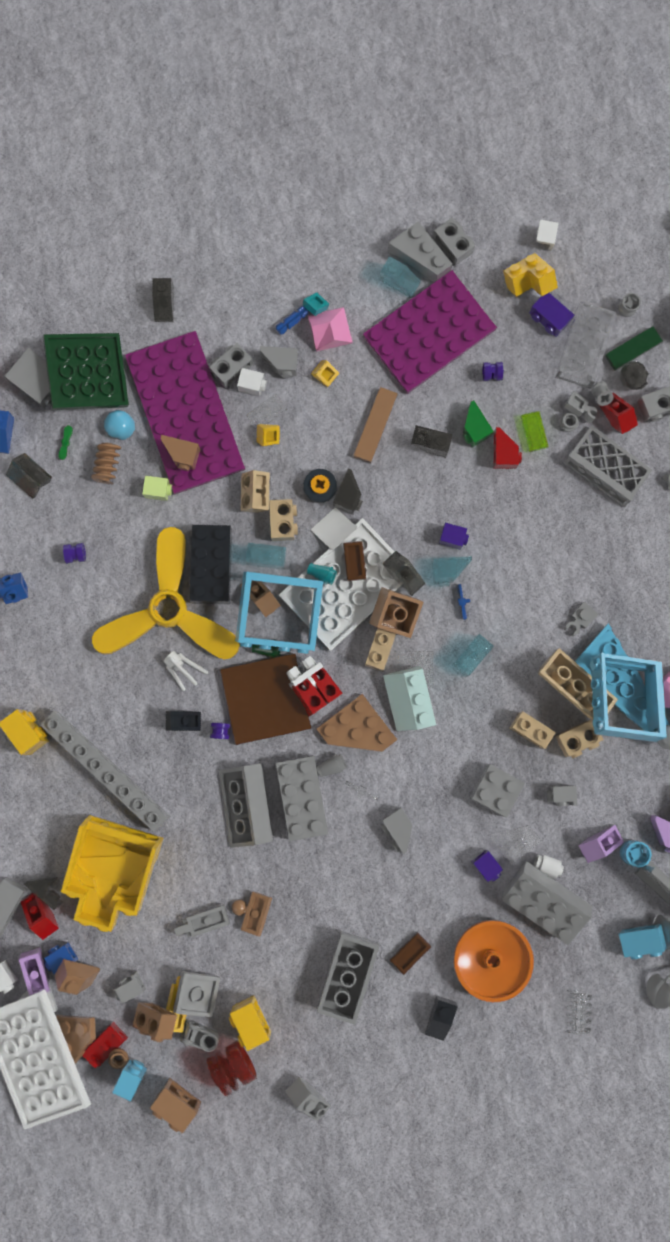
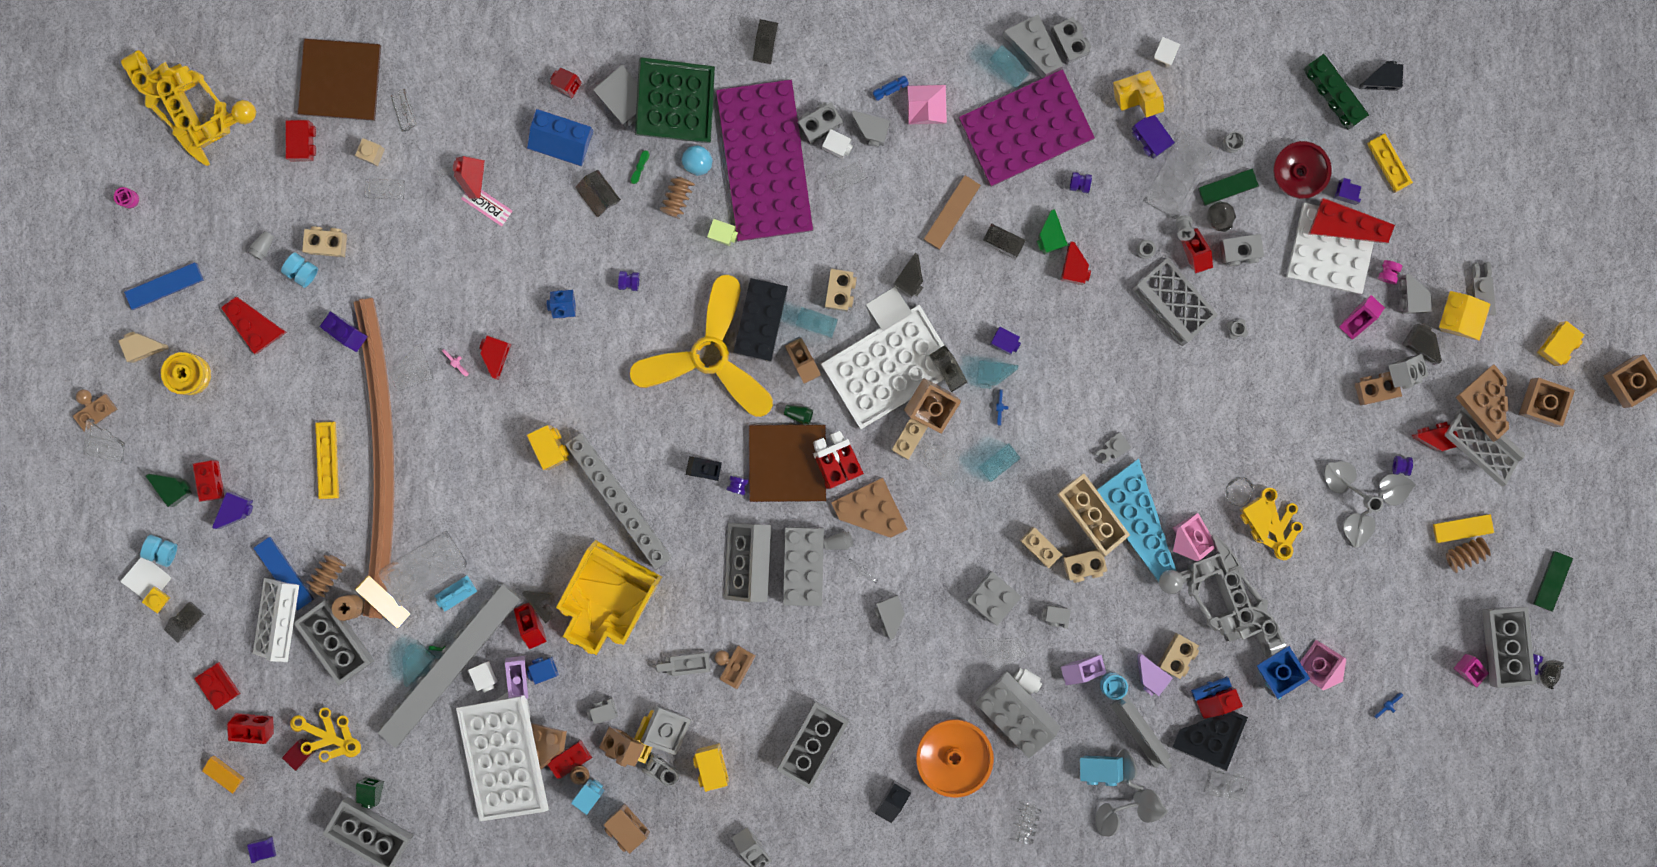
camera: 10 degrees right, 5 degrees up
(75, 976) = (554, 689): medium nougat slope -> none
(174, 662) = (706, 409): white plant -> none
(182, 452) = (754, 203): medium nougat slope -> none
(228, 1069) = (685, 805): clear red wheel -> none
(255, 491) = (818, 256): tan brick -> none
(266, 643) = (796, 343): medium azure window -> none
(268, 434) = (842, 201): yellow slope -> none
(315, 304) = (917, 77): teal plate -> none
(322, 573) = (868, 352): teal cone -> none
(324, 491) = (880, 267): black wheel -> none
(325, 373) = (912, 148): yellow slope -> none
(354, 561) = (902, 346): reddish brown tile -> none
(409, 699) = (927, 493): light aqua slope -> none
(410, 953) = (877, 735): reddish brown tile -> none
(487, 866) = (968, 668): dark purple brick -> none
(534, 431) = (1109, 251): clear neon green tile -> none
(578, 405) = (1159, 236): light grey plate -> none
(654, 697) = (1165, 542): medium azure window -> none

